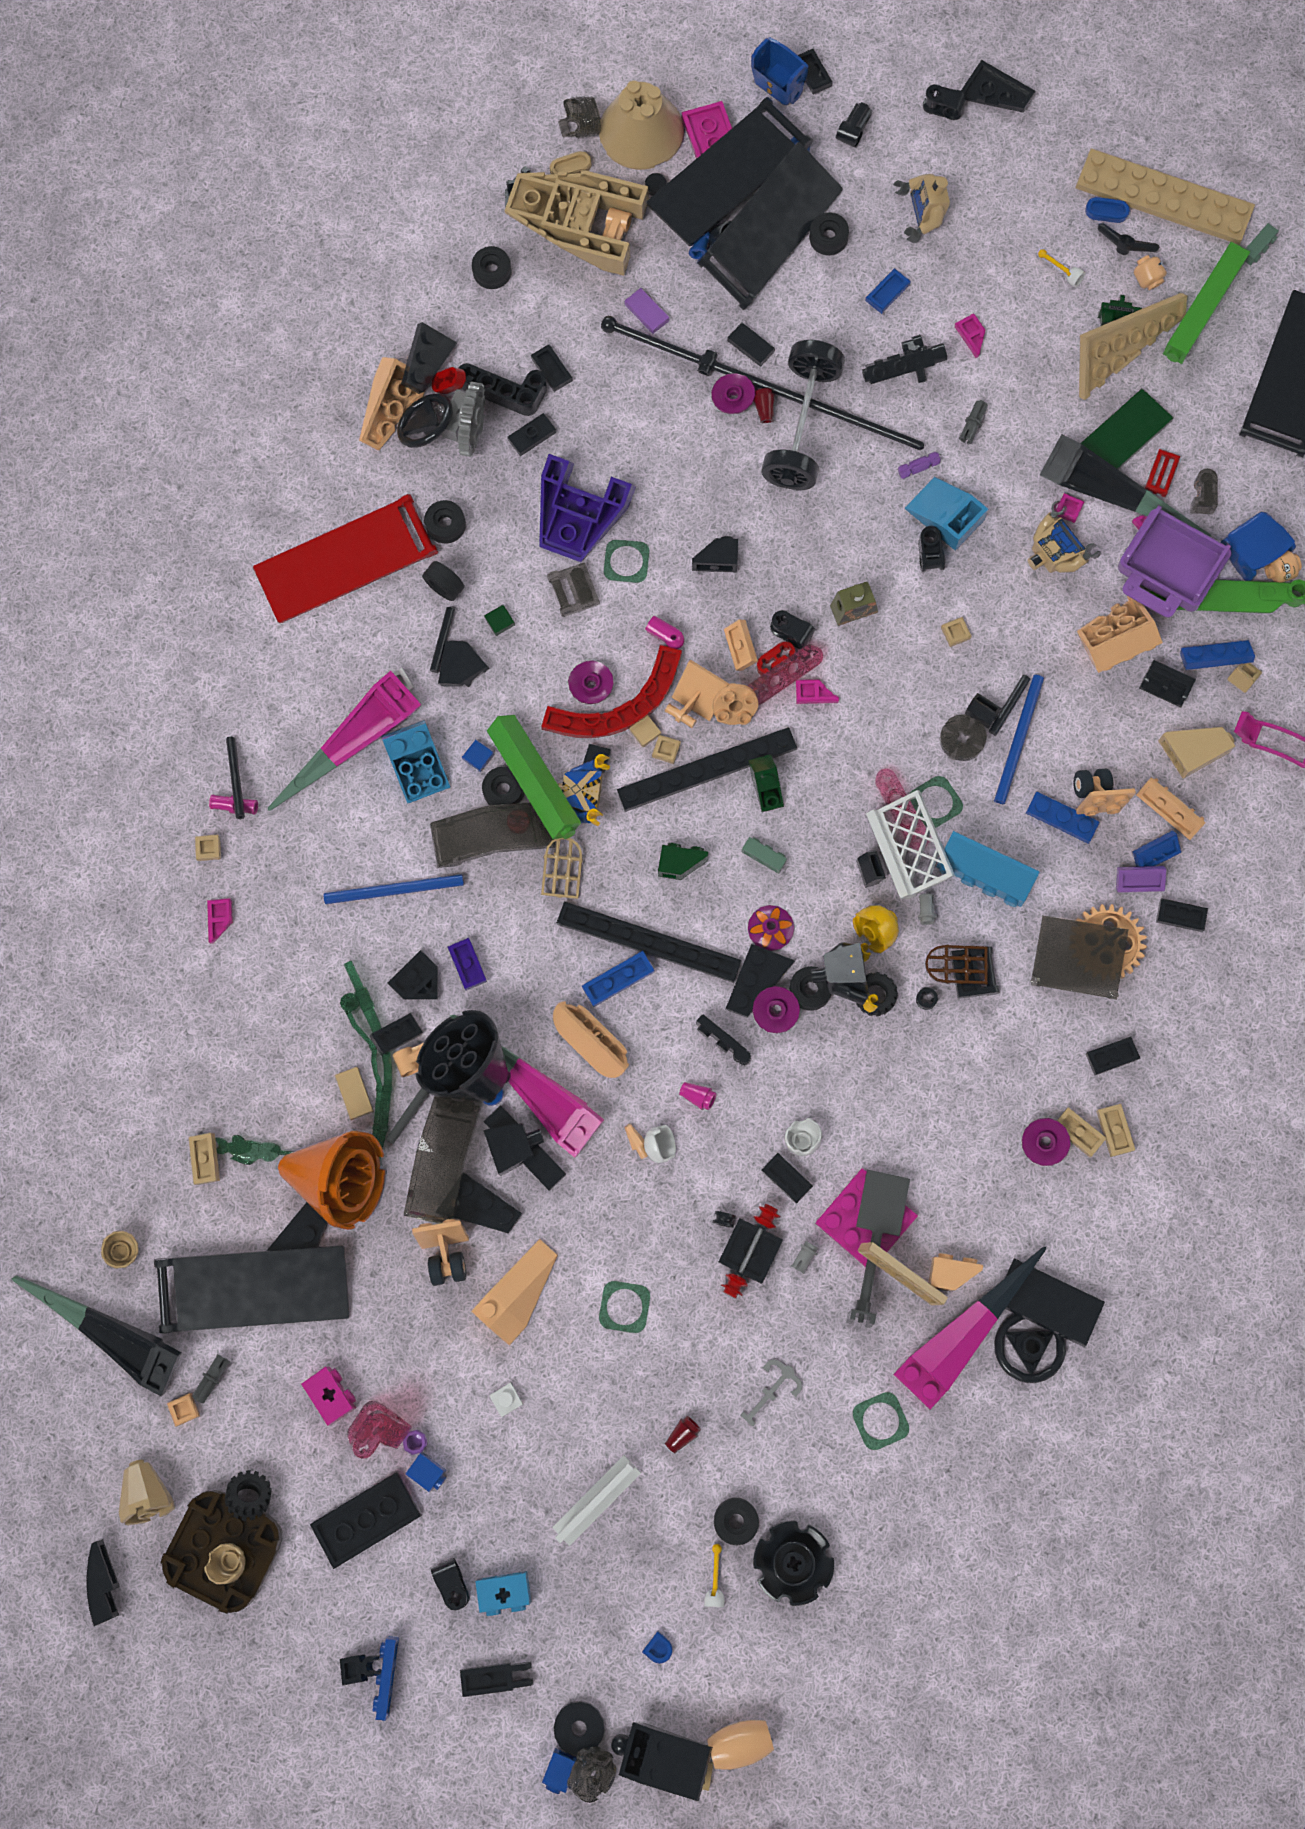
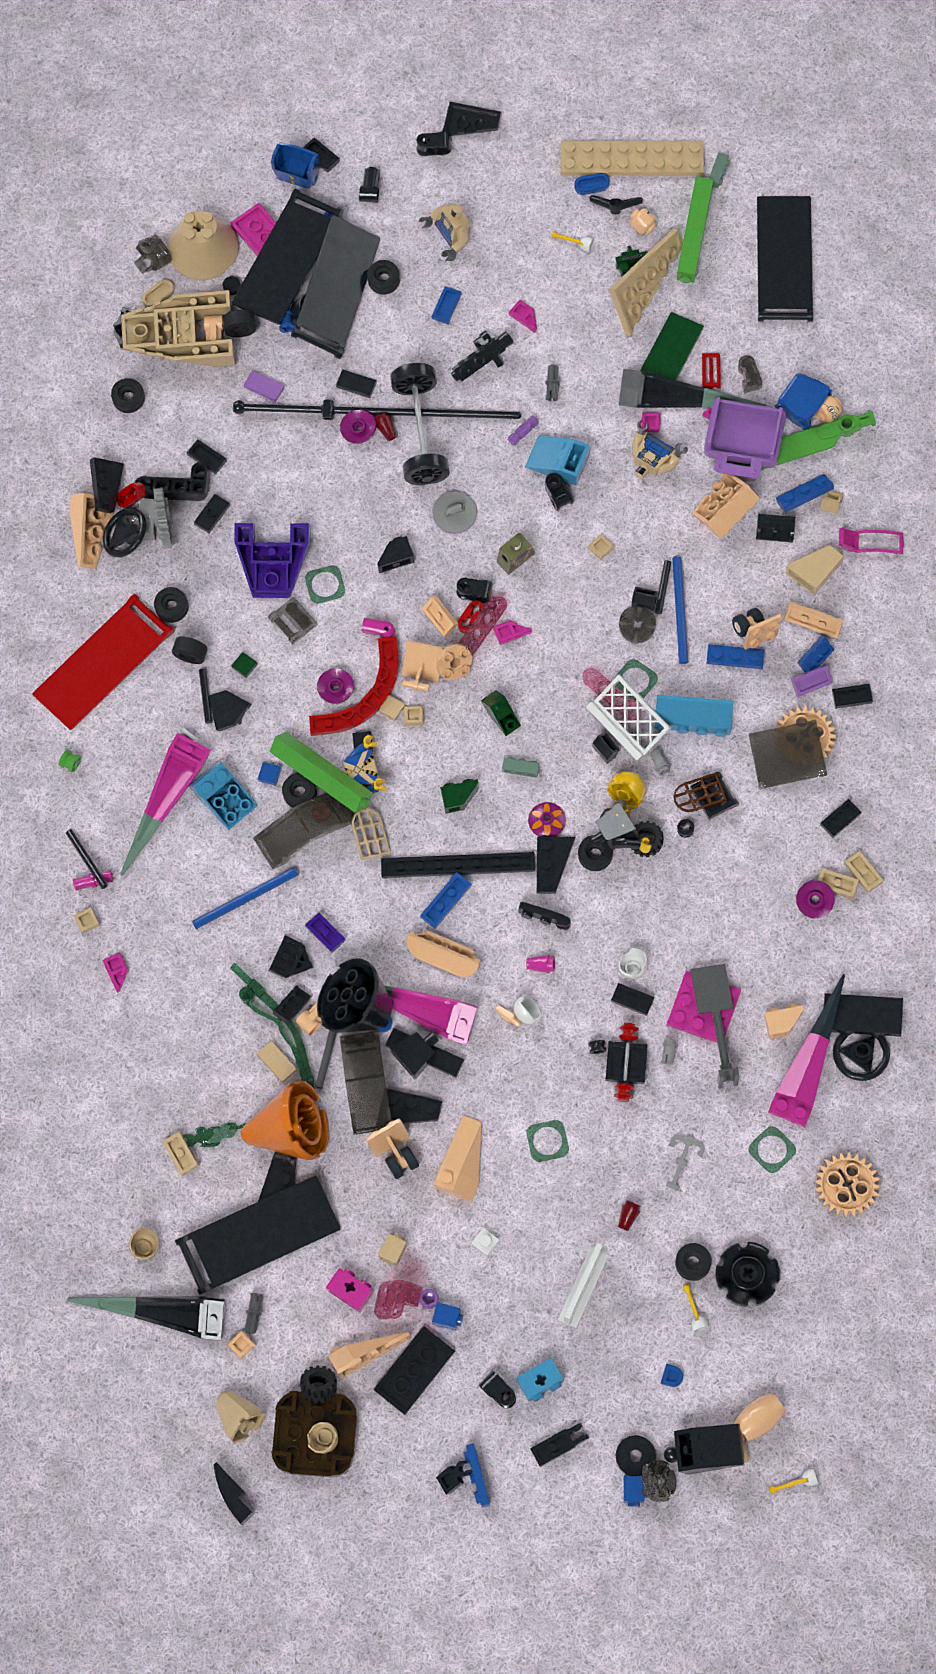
camera: 20 degrees left, 5 degrees down
(262, 658) = (69, 761): none -> bright green wheel
(302, 1477) = (355, 1356): none -> light nougat wedge
(396, 1367) = (393, 1249): none -> tan brick
(646, 229) = (239, 323): none -> black tyre
(705, 769) = (449, 720): black plate -> none
(764, 1013) = (572, 868): magenta dish -> none
(804, 531) = (454, 512): none -> light grey shield
(902, 1274) = (745, 1033): tan tile -> none
(929, 1503) = (863, 1178): none -> light nougat gear

